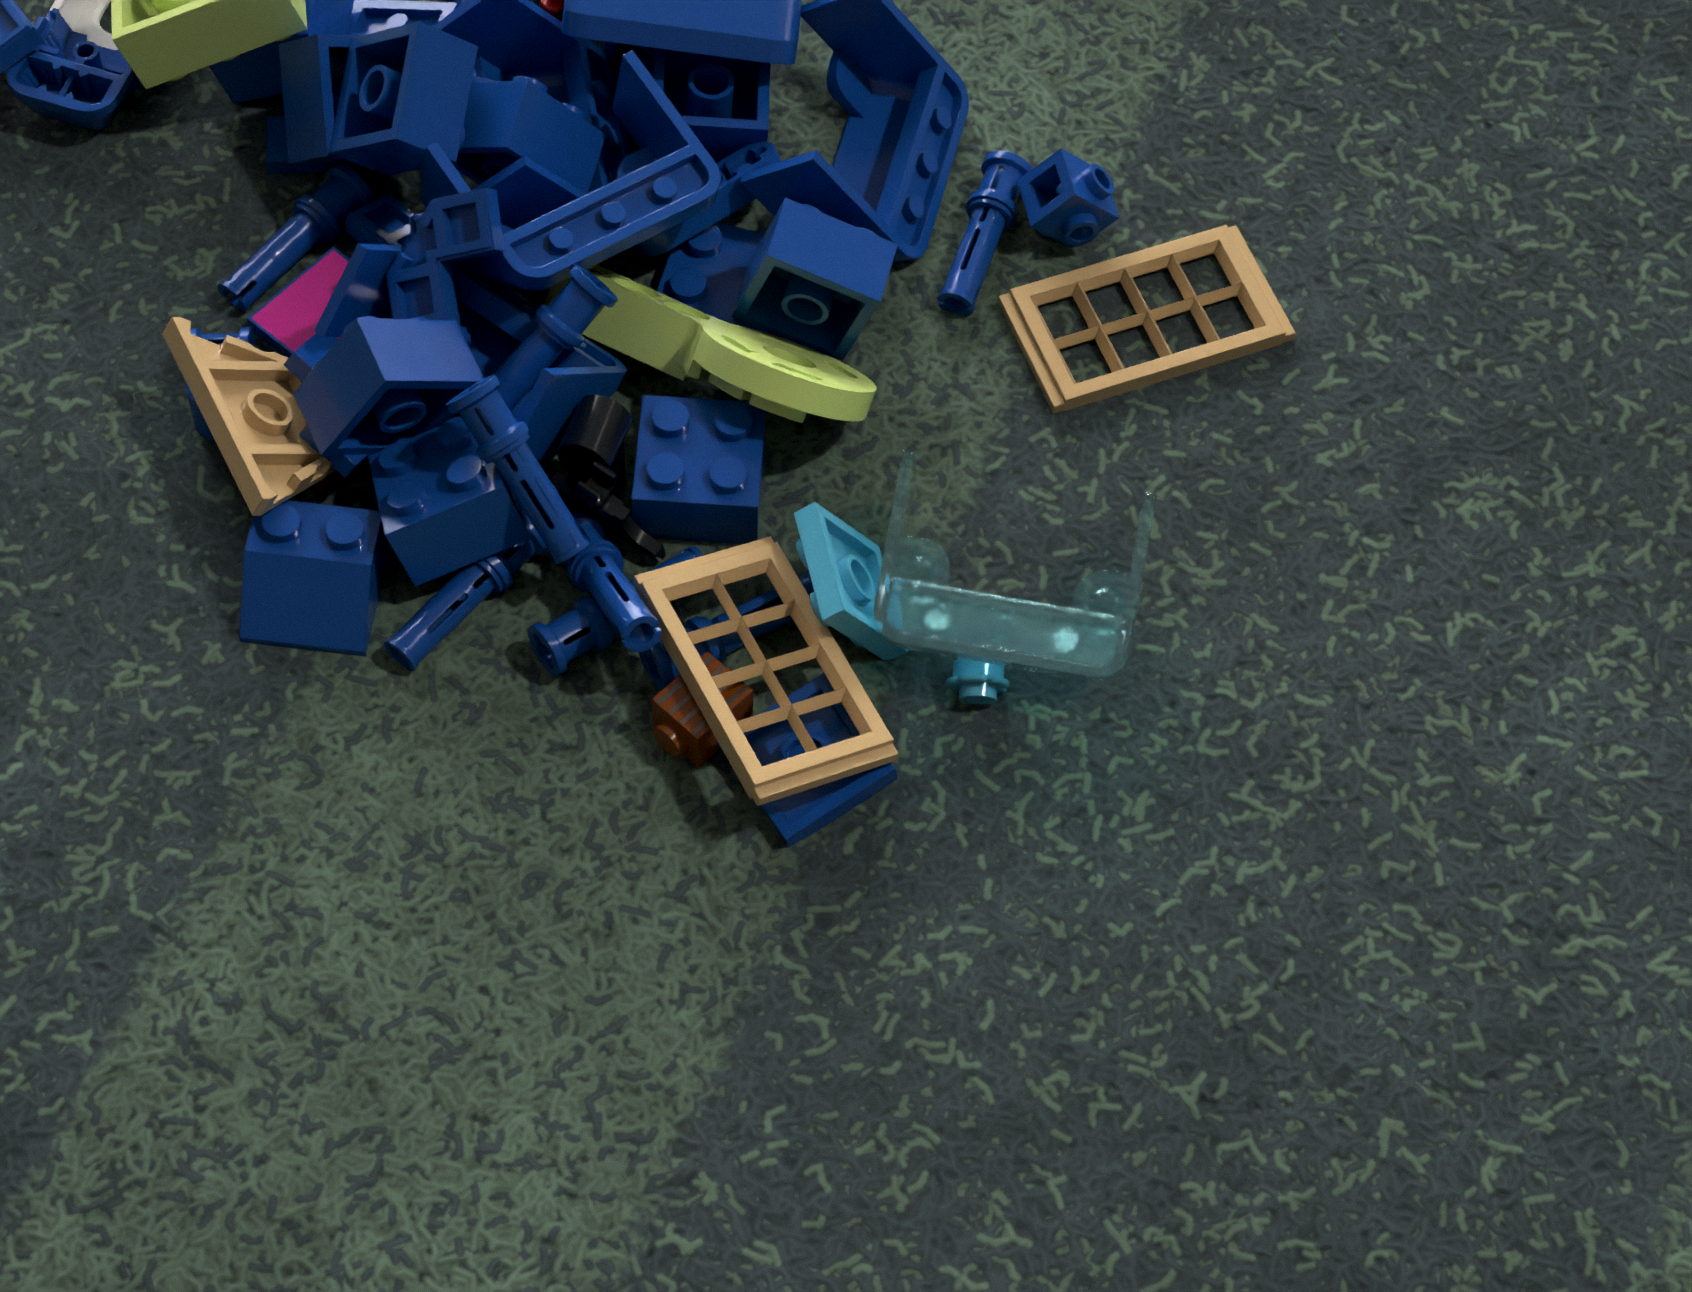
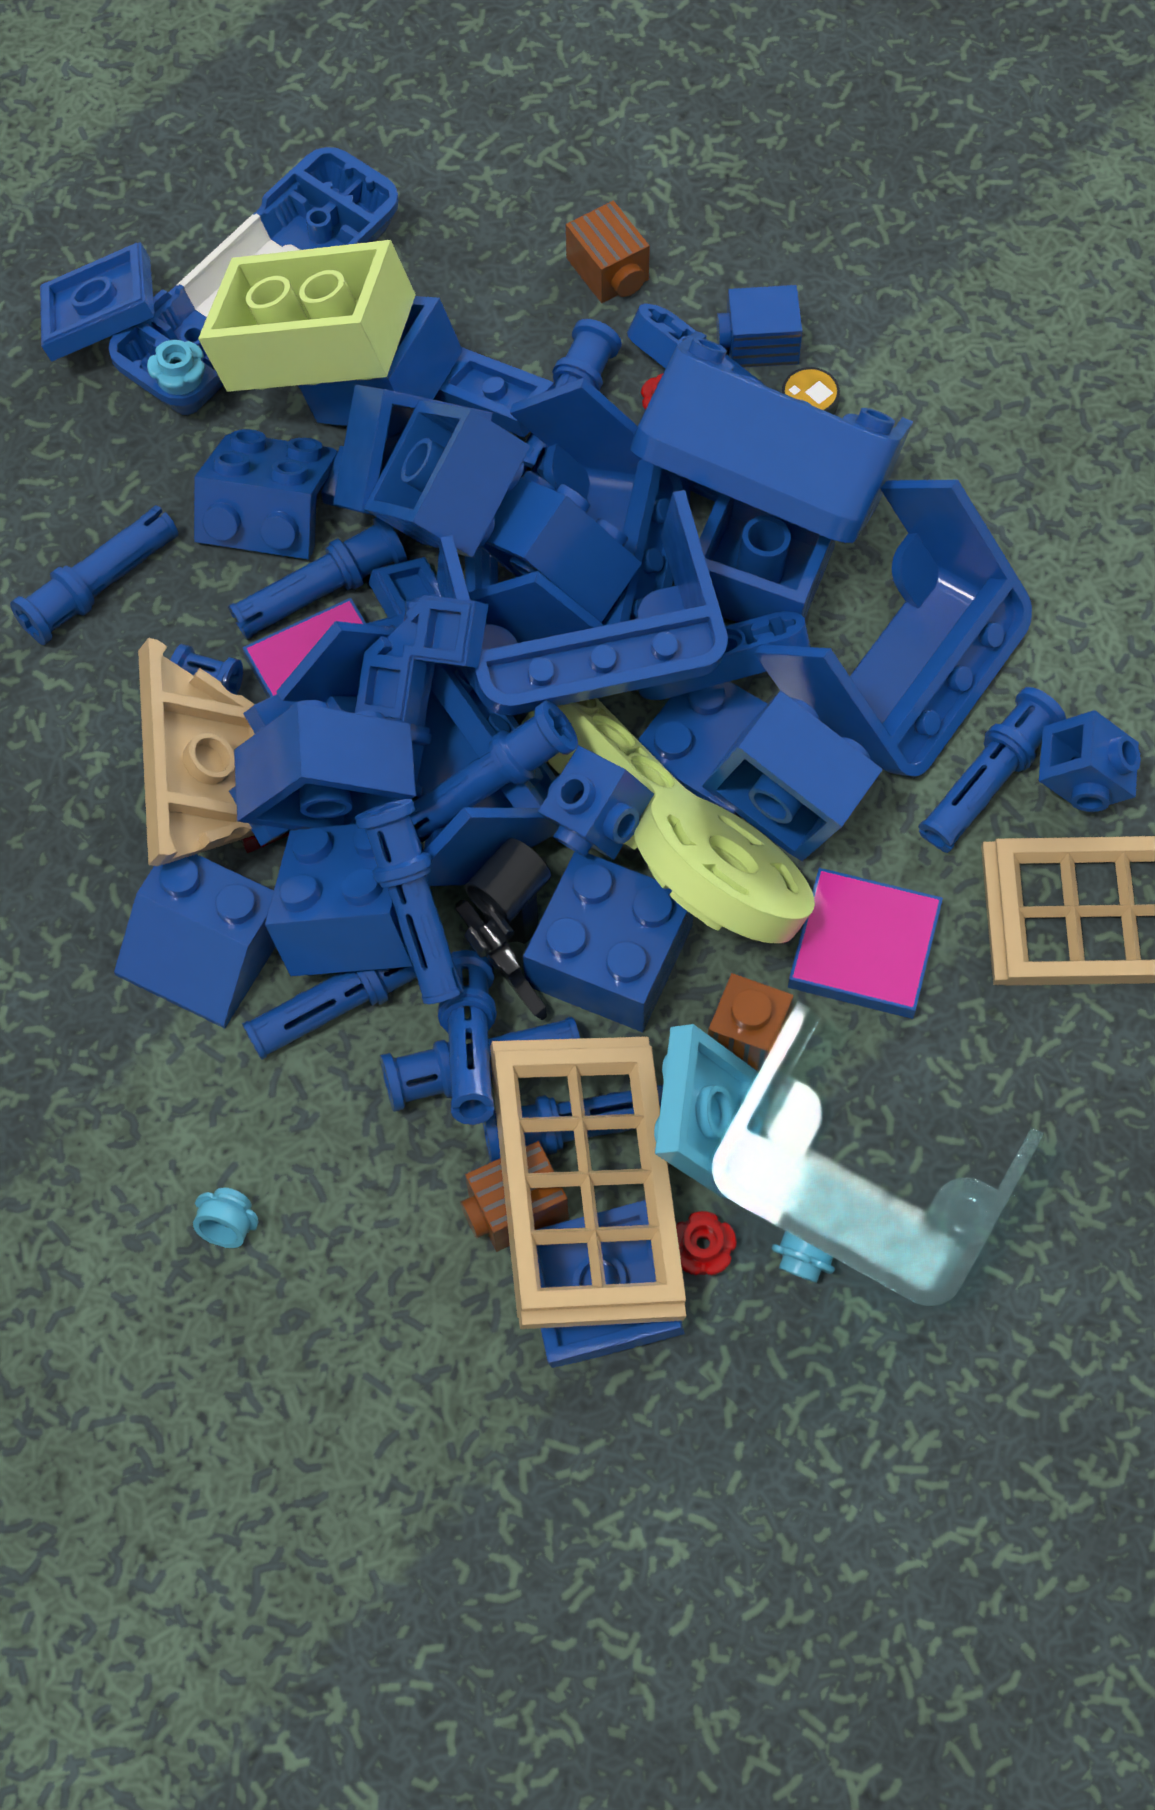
camera: 25 degrees right, 5 degrees up
(58, 310) = (74, 588): none -> blue pin
(87, 79) = (177, 377): none -> medium azure plate
(209, 178) = (261, 493): none -> blue bracket
(436, 812) = (222, 1209): none -> medium azure plate
(650, 346) = (595, 804): none -> blue brick
(859, 495) = (750, 1019): none -> dark orange brick
(899, 691) = (713, 1258): none -> red plate
(930, 409) = (865, 943): none -> dark pink tile

